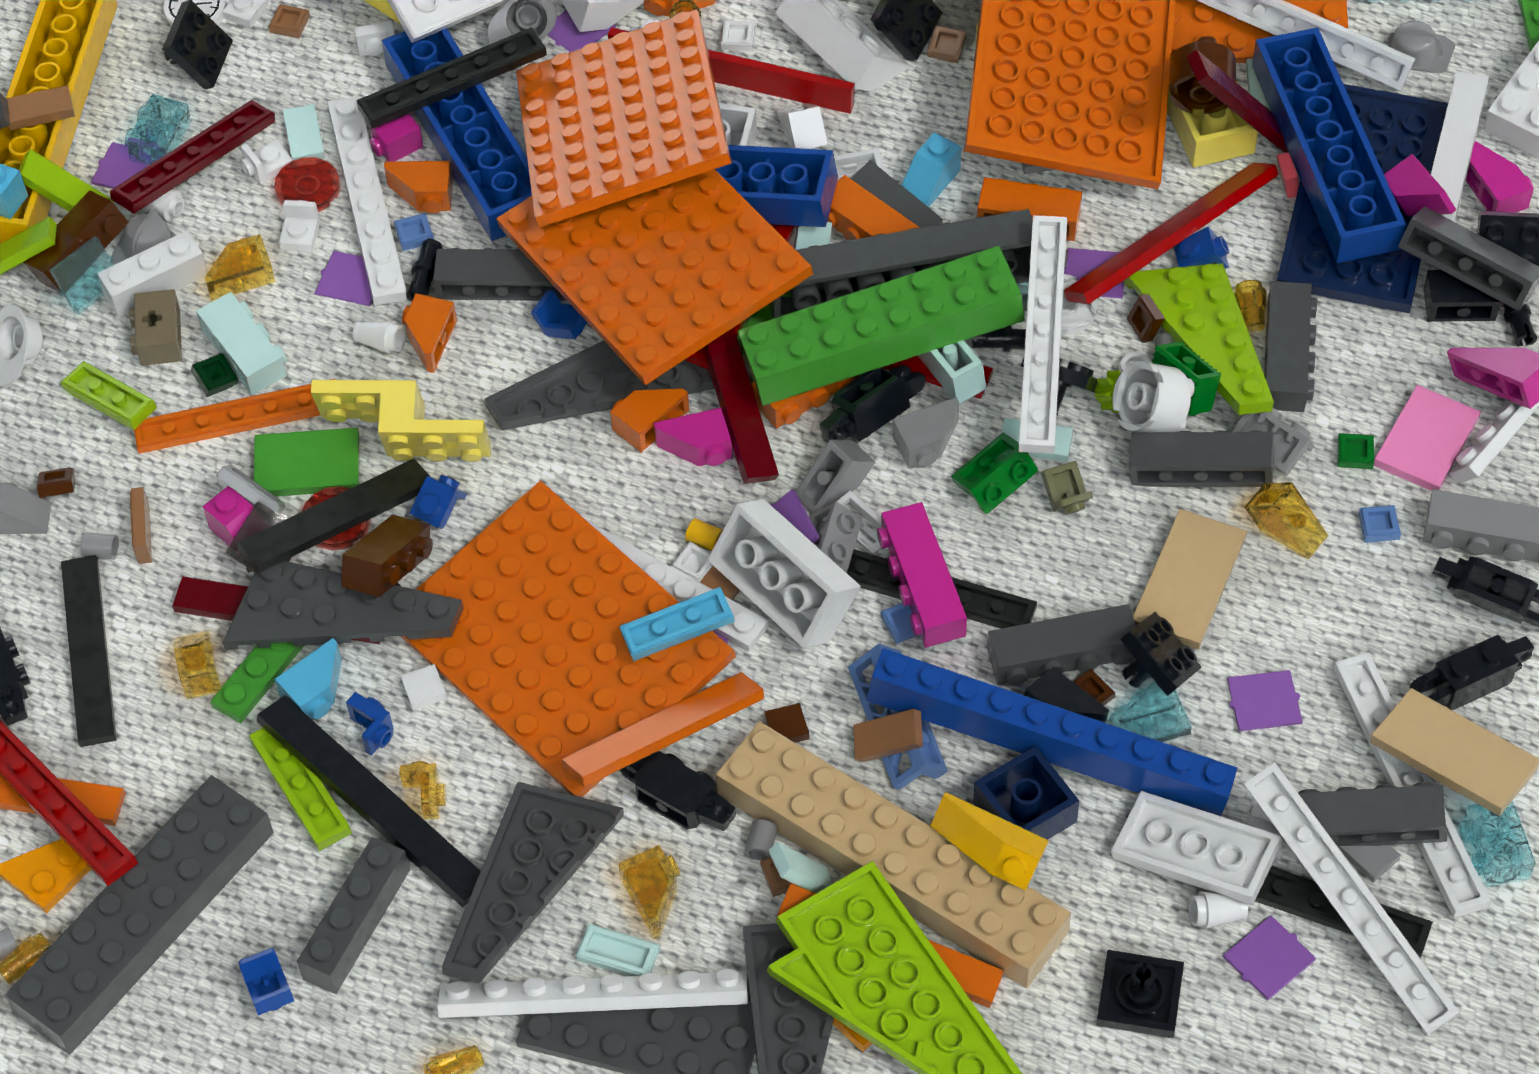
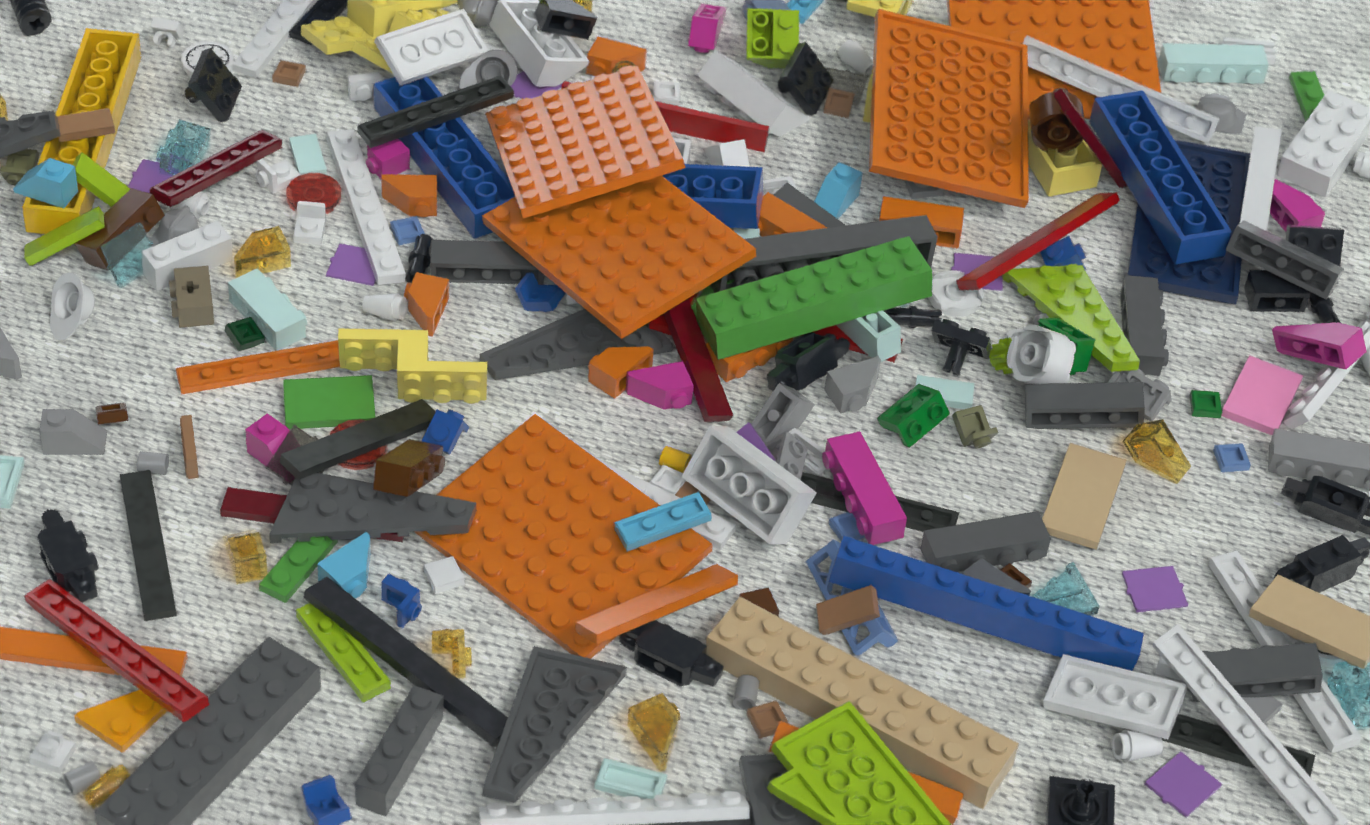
camera: 10 degrees left, 10 degrees down
(108, 395) = (153, 347): lime tile -> none
(249, 488) = (281, 415): light grey tile -> none
(800, 868) = (782, 708): light aqua tile -> none
(990, 840) = (945, 685): yellow slope -> none
(1028, 795) = (969, 661): dark blue brick -> none
(1043, 335) = (950, 305): white plate -> none
(1145, 318) = (1024, 303): reddish brown tile -> none
(1158, 655) = (1067, 550): black plate -> none
(1252, 303) = (1110, 292): clear yellow cone -> none
(1288, 174) = (1127, 201): coral tile -> none
(1415, 188) = (1238, 206): dark pink slope -> none

